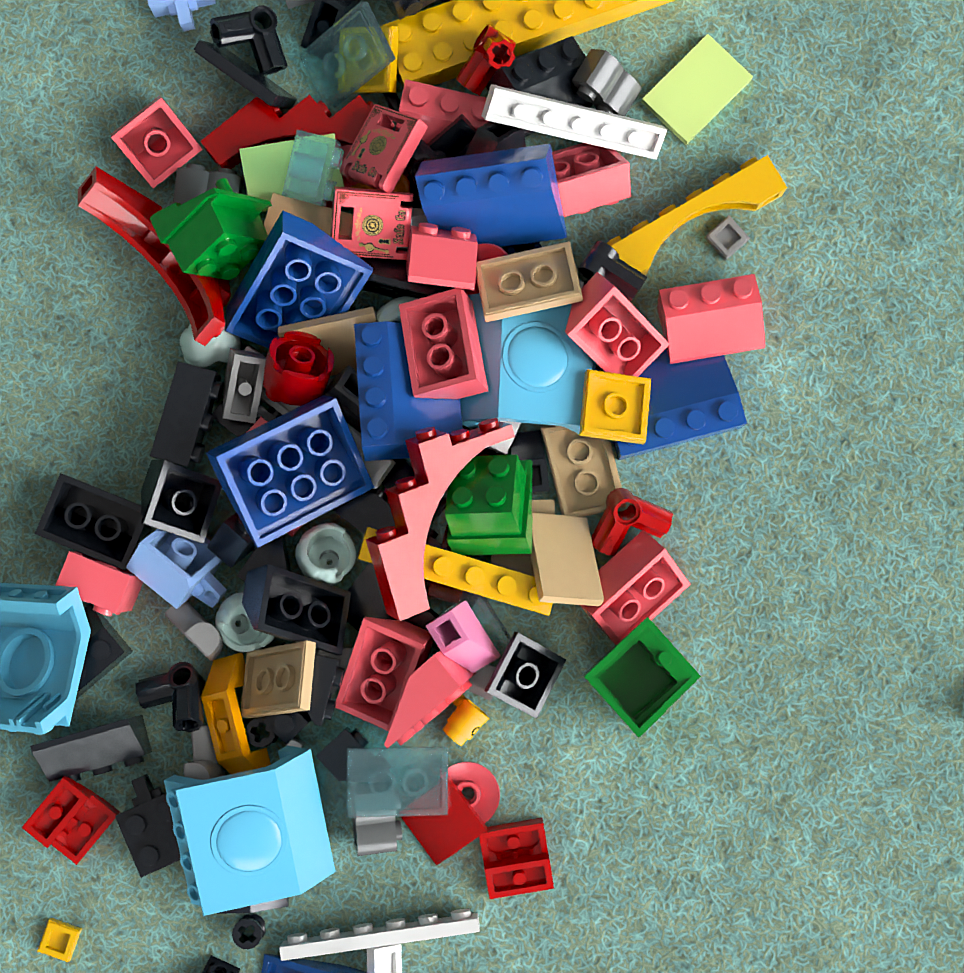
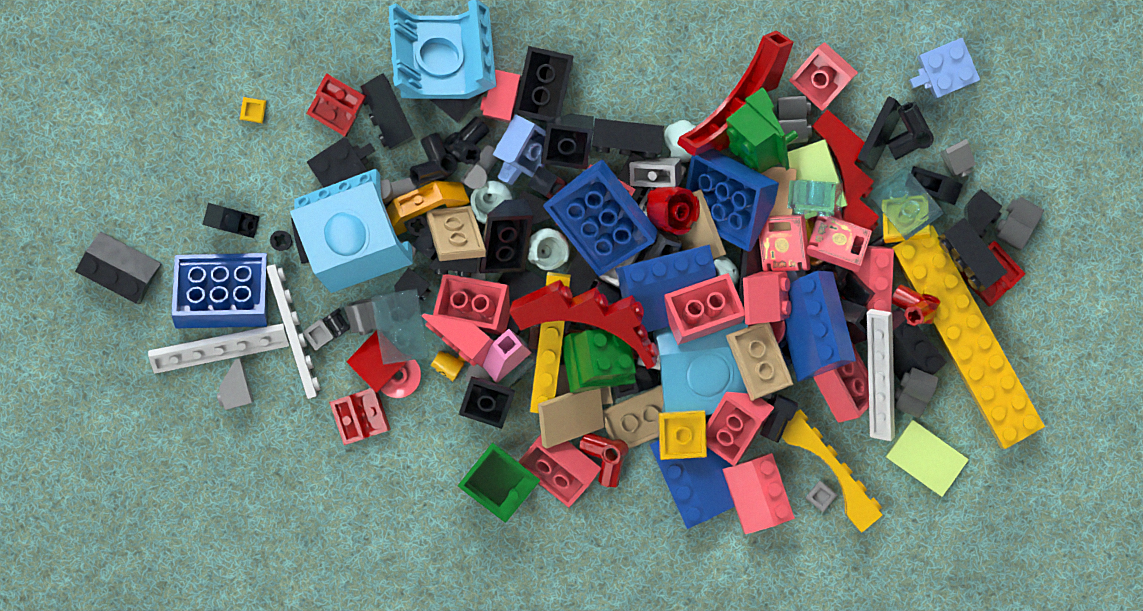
camera: 80 degrees right, 5 degrees up
(158, 646) = (463, 143): none -> black piece
(379, 869) = (337, 323): none -> black bush
(391, 898) = (318, 334): none -> light grey plate

